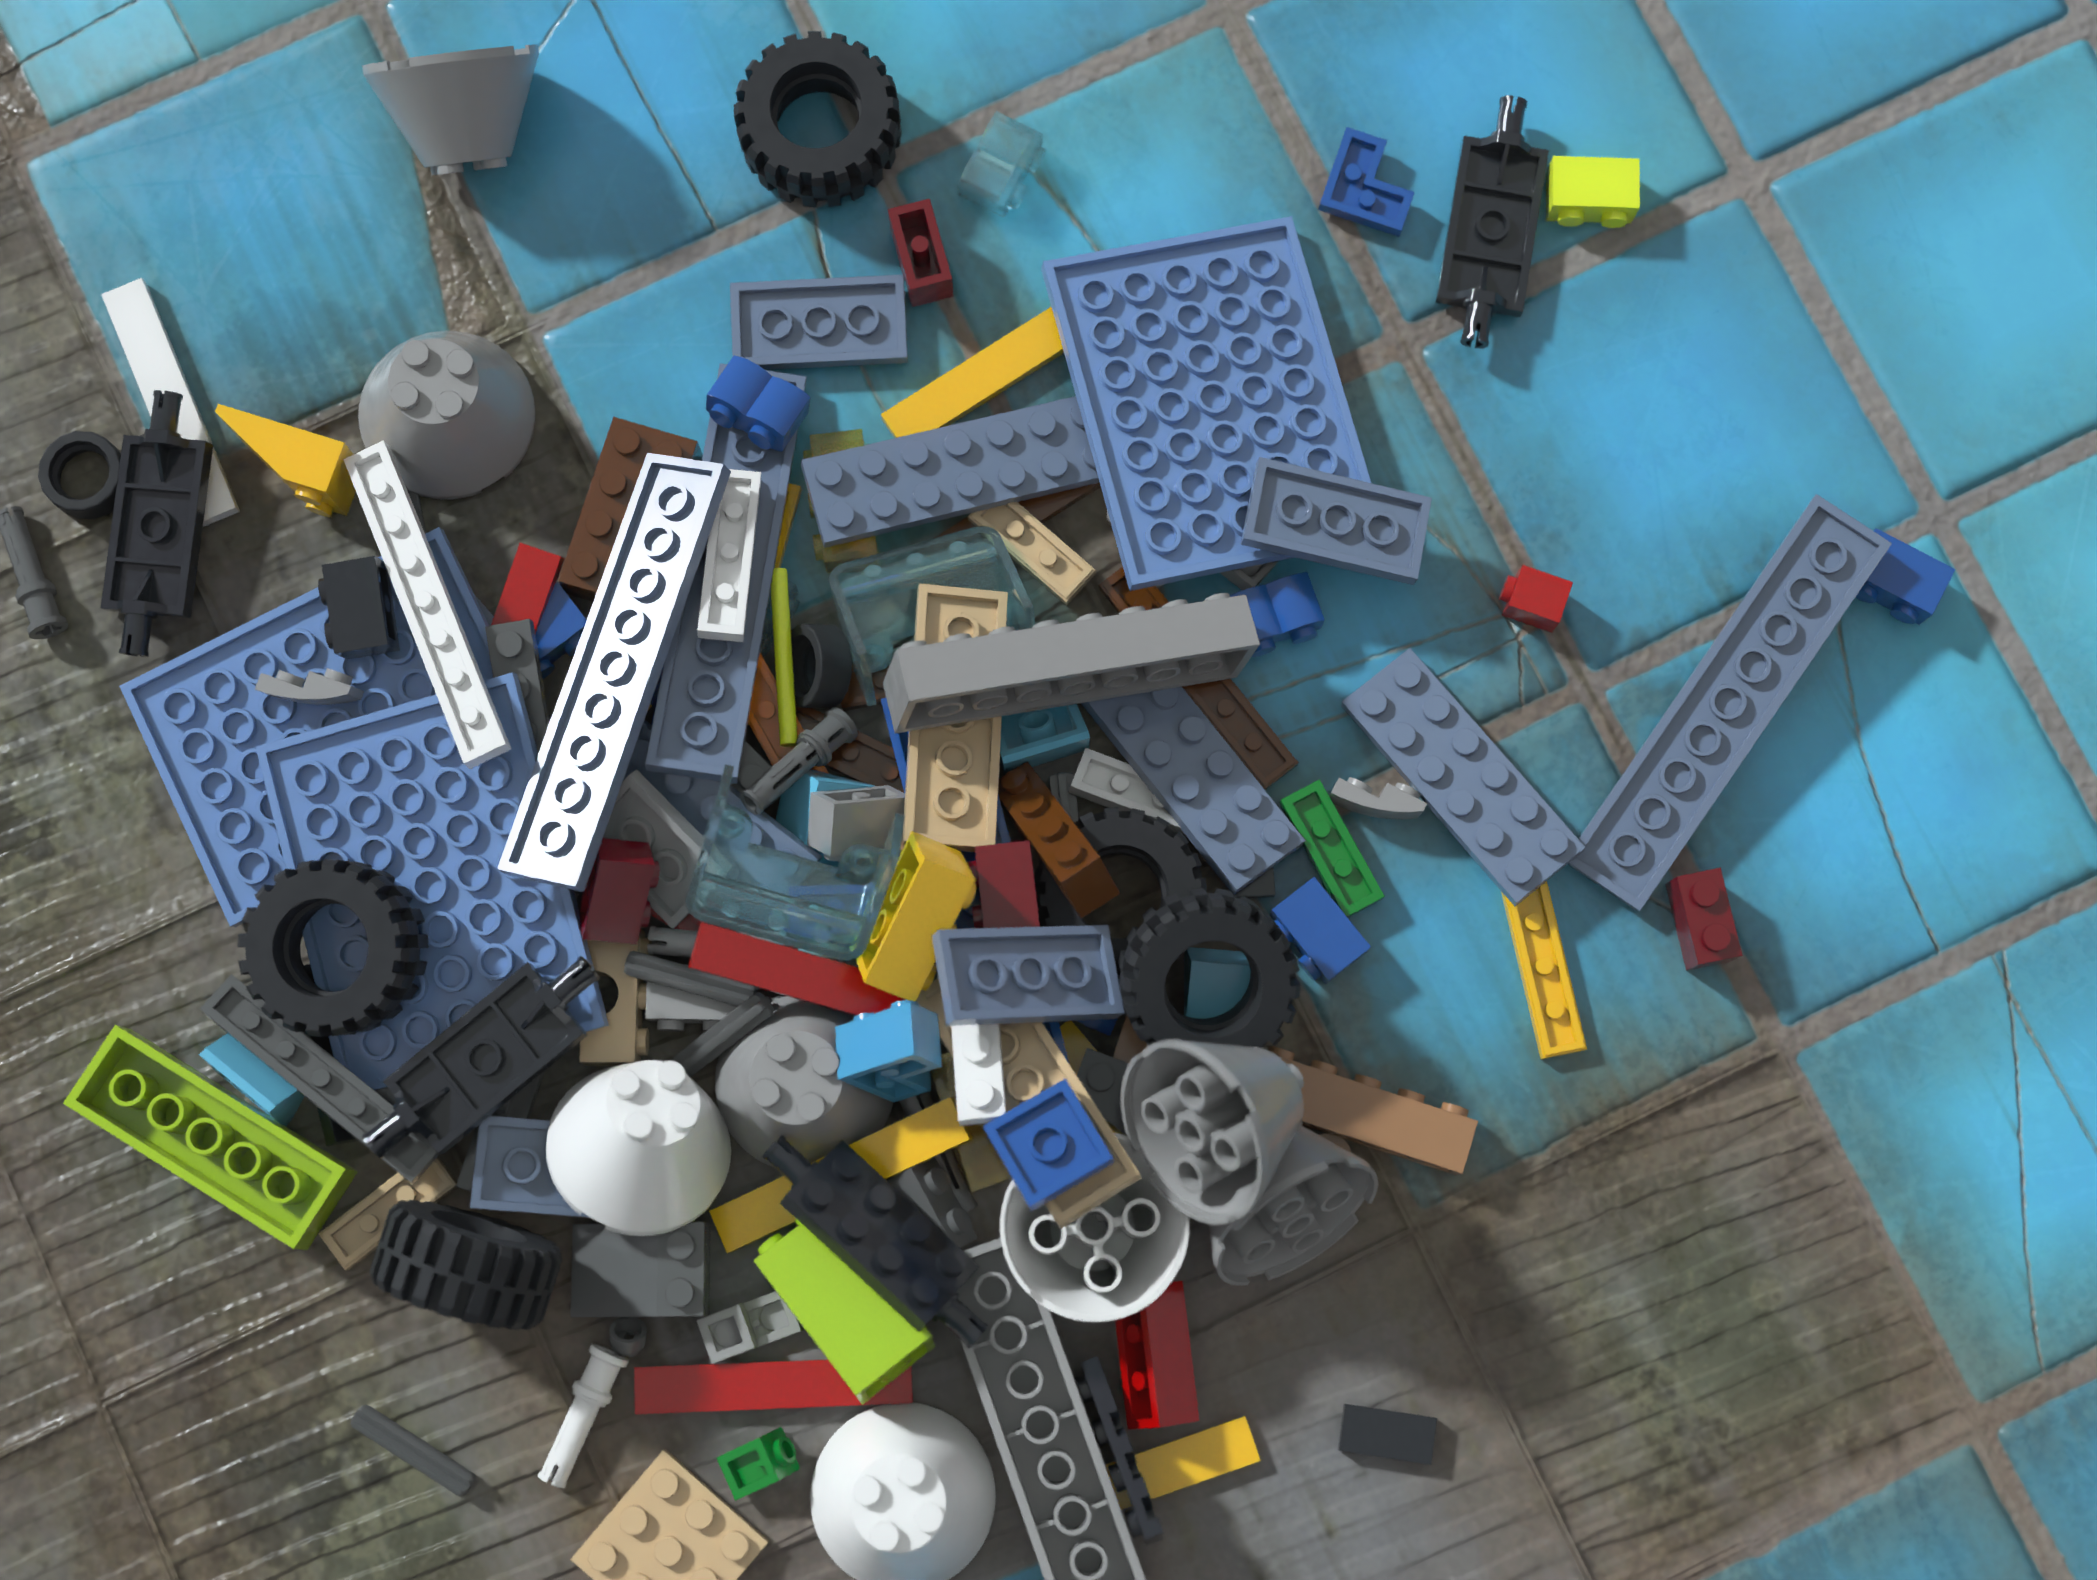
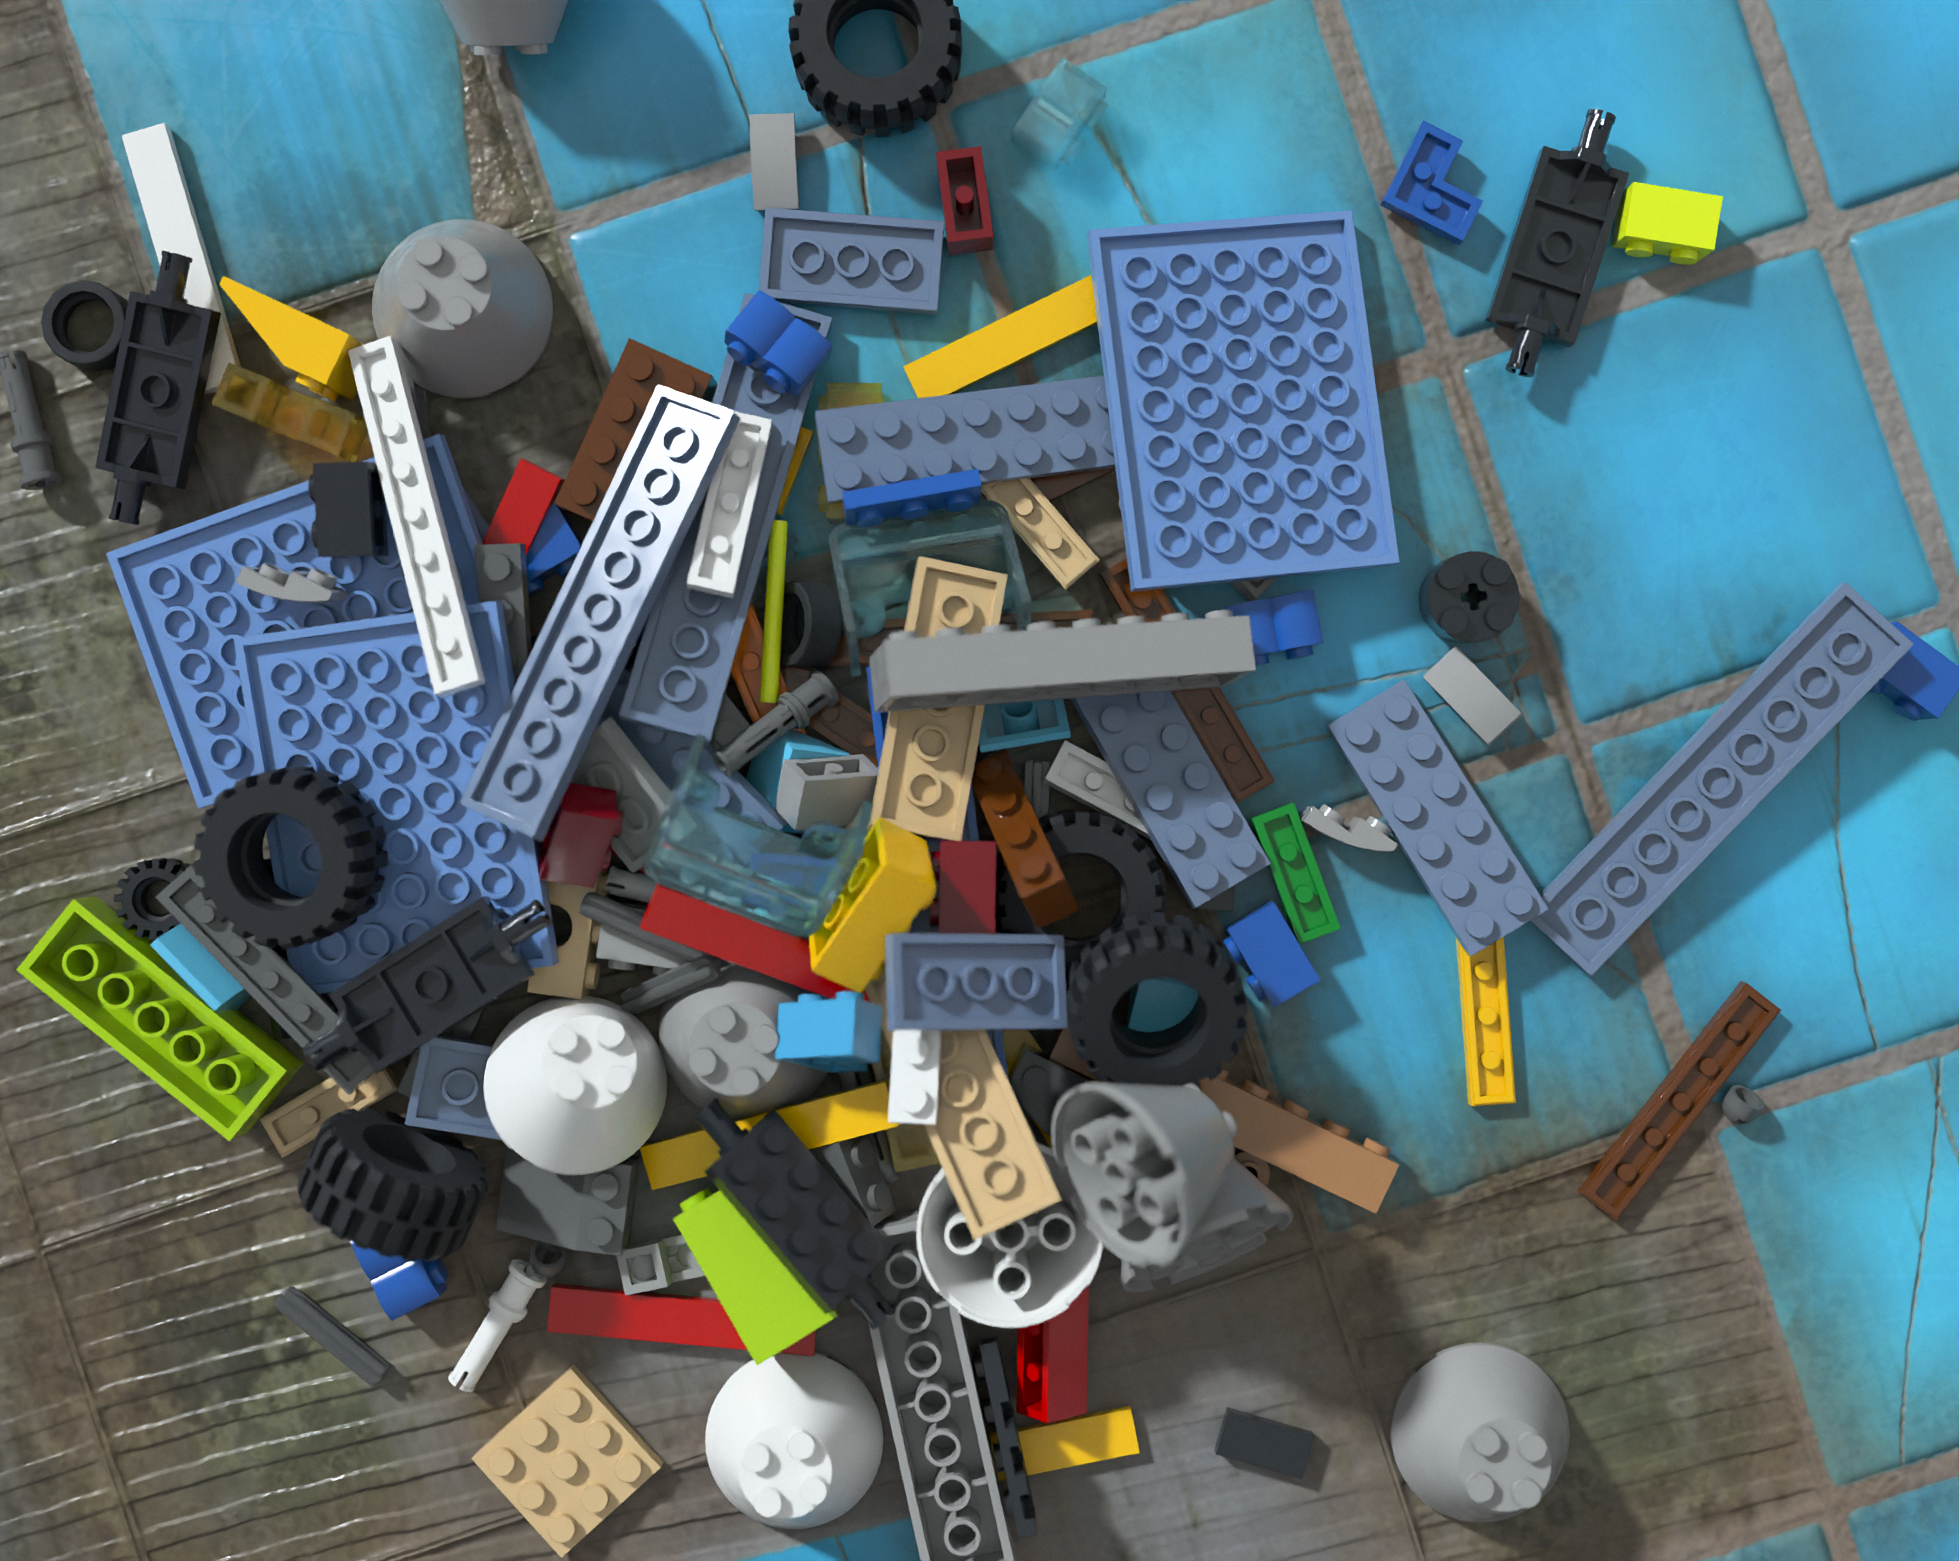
camera: 10 degrees right, 10 degrees up
(172, 1017) = (134, 896): none -> black tyre
(269, 527) = (290, 413): none -> clear yellow arch
(477, 1365) = (402, 1283): none -> blue brick
(733, 240) = (774, 161): none -> light grey slope
(759, 1463) = (660, 1393): green bracket -> none
(904, 529) = (912, 498): none -> blue plate
(1048, 1144) = (974, 1160): blue plate -> none
(1336, 521) = (1351, 546): sand blue plate -> none
(1473, 539) = (1486, 578): none -> black brick
(1479, 654) = (1472, 695): none -> light grey slope
(1535, 598) = (1539, 645): red brick -> none
(1606, 1395) = (1479, 1432): none -> light grey cone
(1703, 919) = (1653, 993): dark red brick -> none
(1749, 1027) = (1679, 1100): none -> reddish brown tile
(1812, 1022) = (1742, 1104): none -> dark grey hinge

